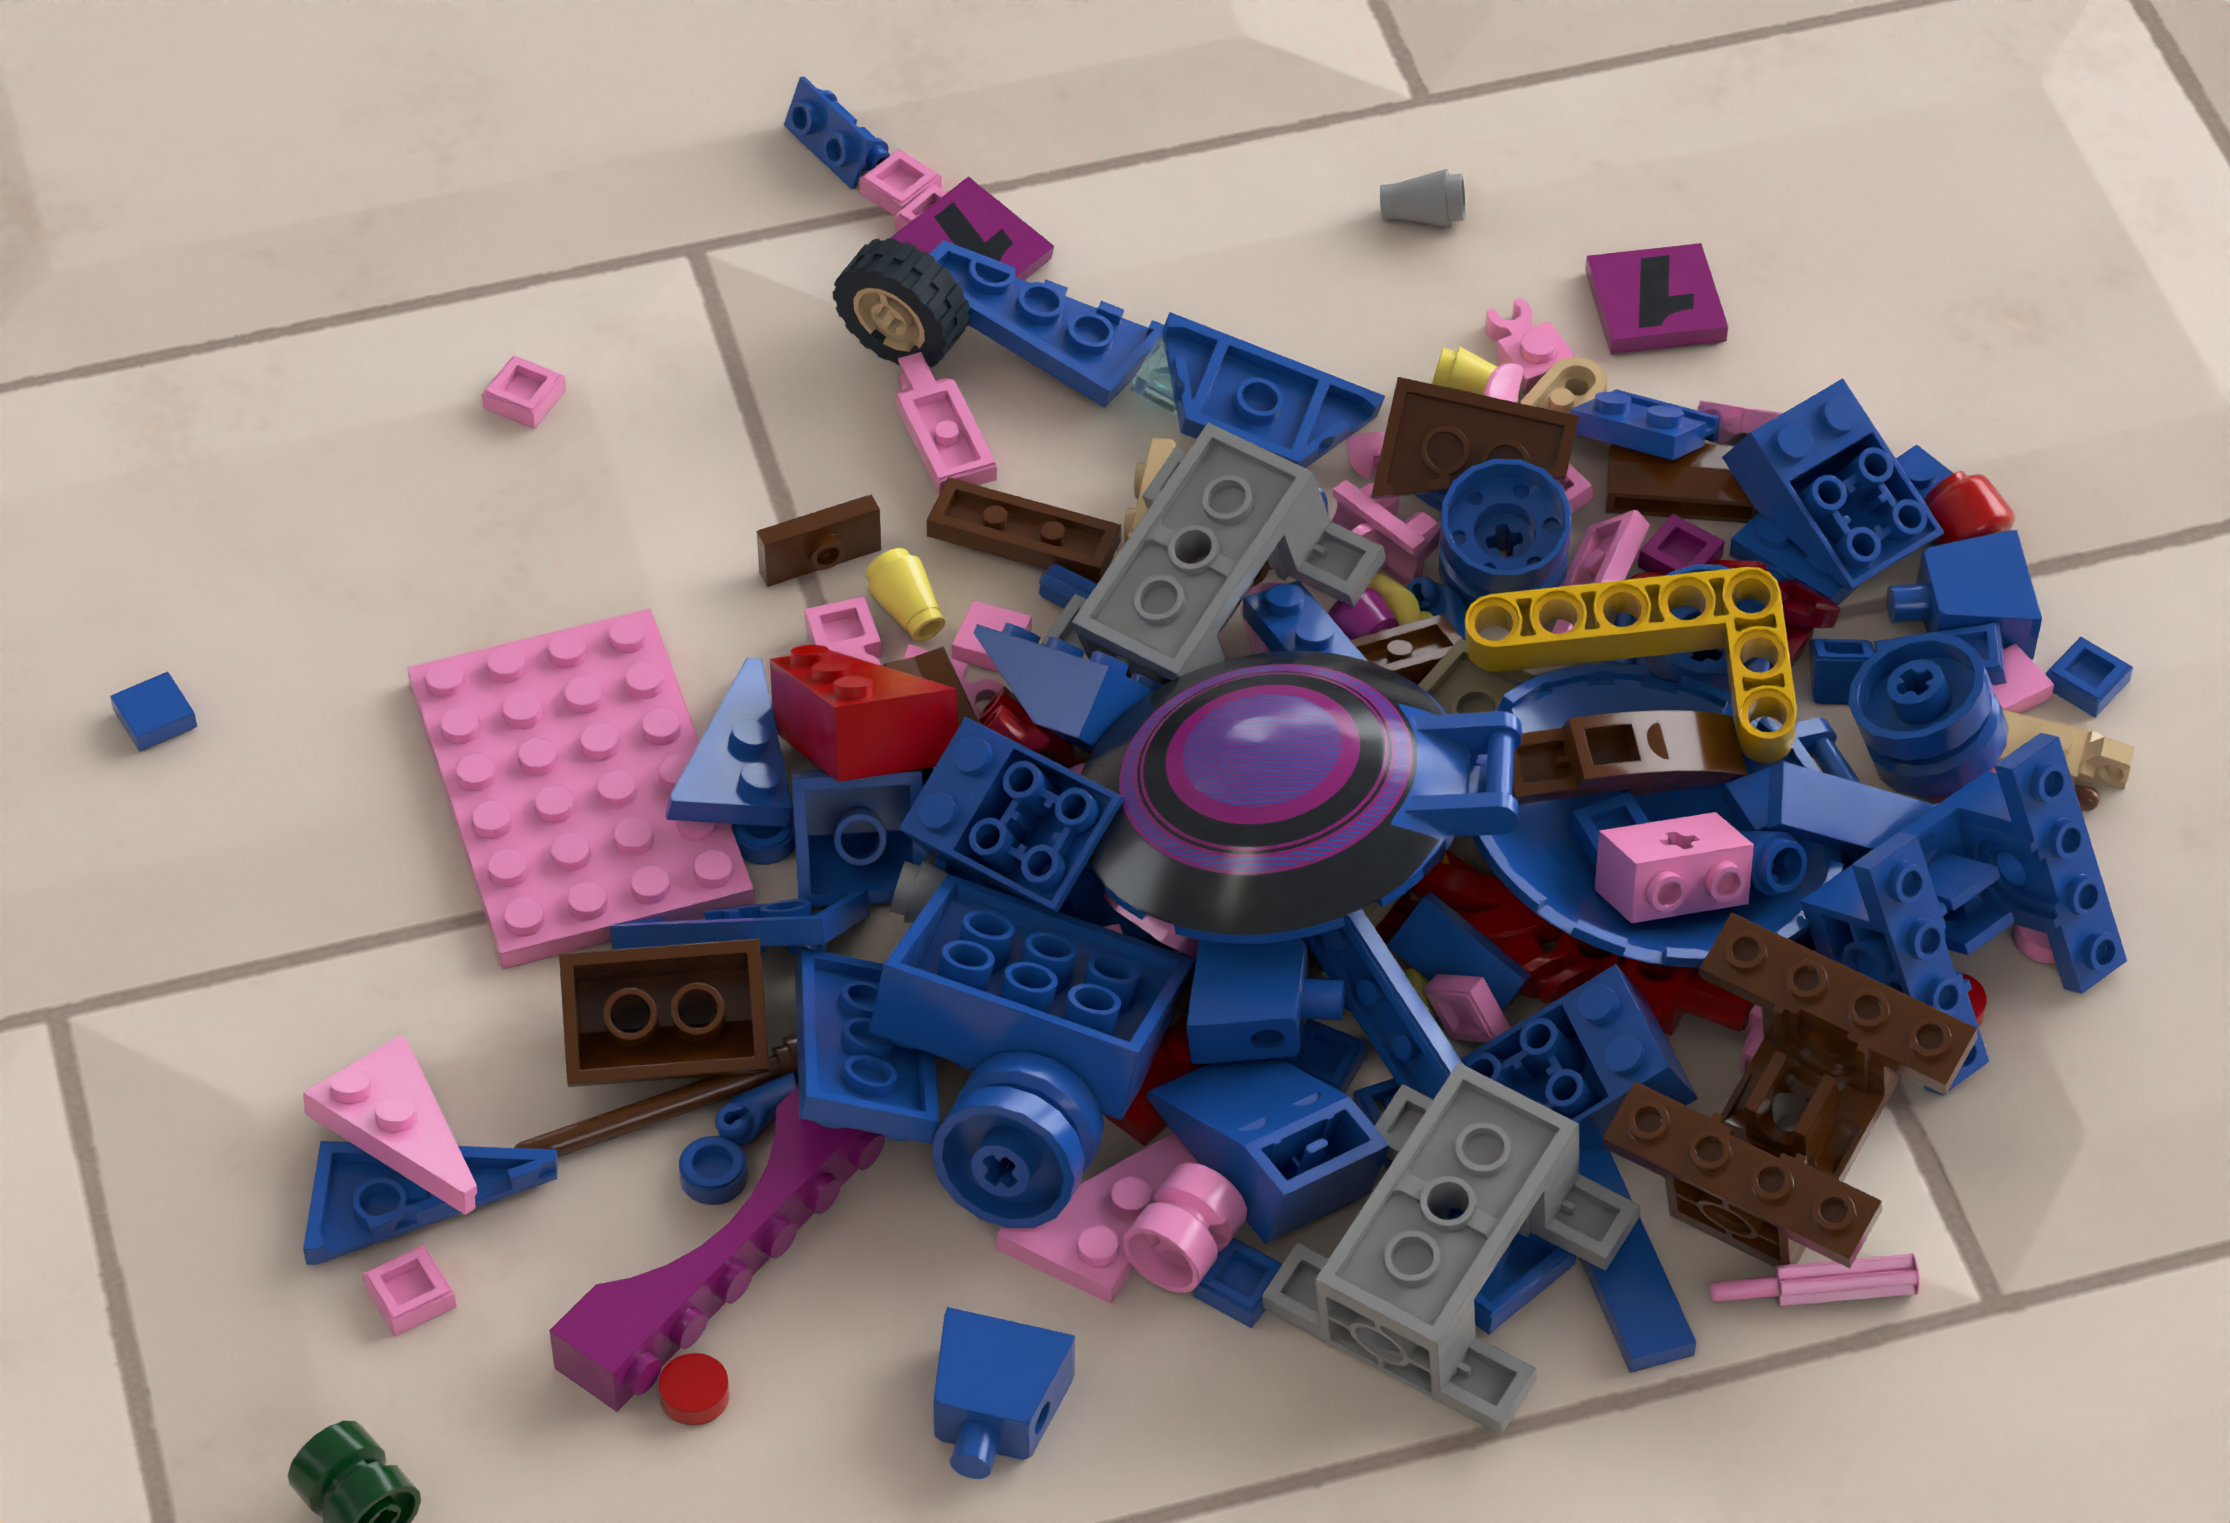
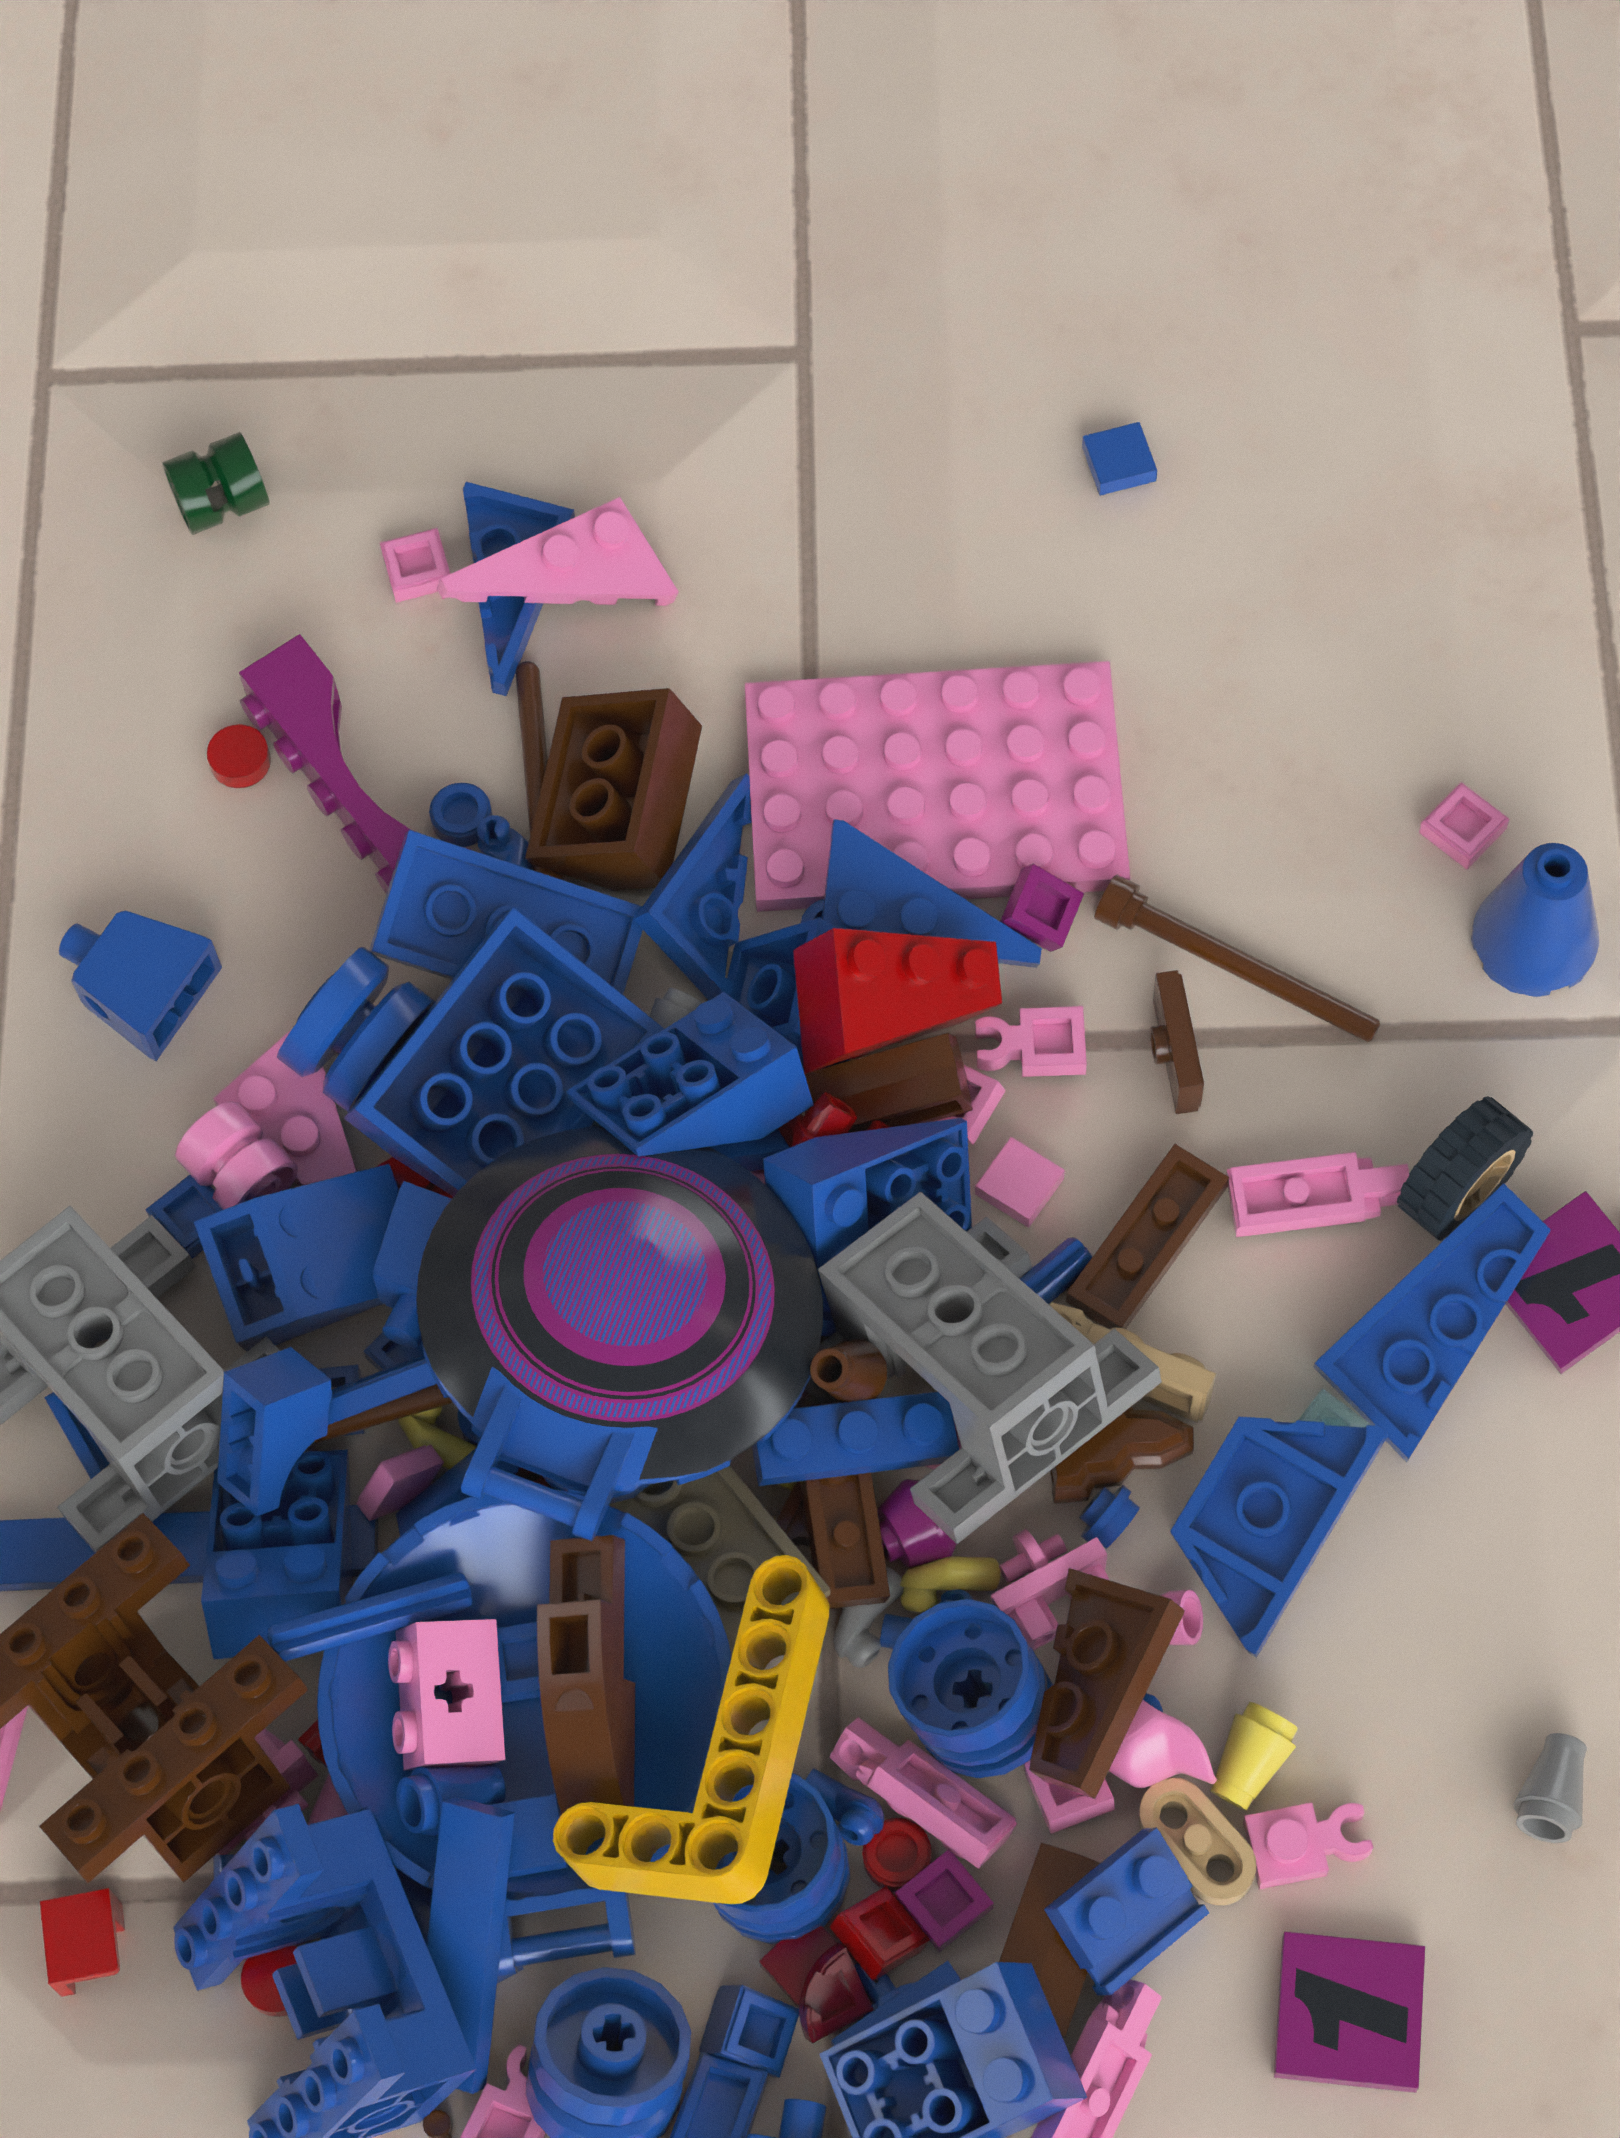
camera: 110 degrees right, 15 degrees up
(625, 301) = (1539, 924): none -> blue cone
(682, 607) = (1127, 907): none -> reddish brown piece
(703, 664) = (1042, 907): none -> magenta plate
(905, 593) = (1087, 1109): light yellow cone -> none
(1268, 634) = (850, 1371): none -> reddish brown cone
(1478, 1036) = (267, 1422): none -> blue arch
(1636, 918) = (370, 1616): none -> blue axle
(1991, 1142) = (81, 1938): none -> red panel

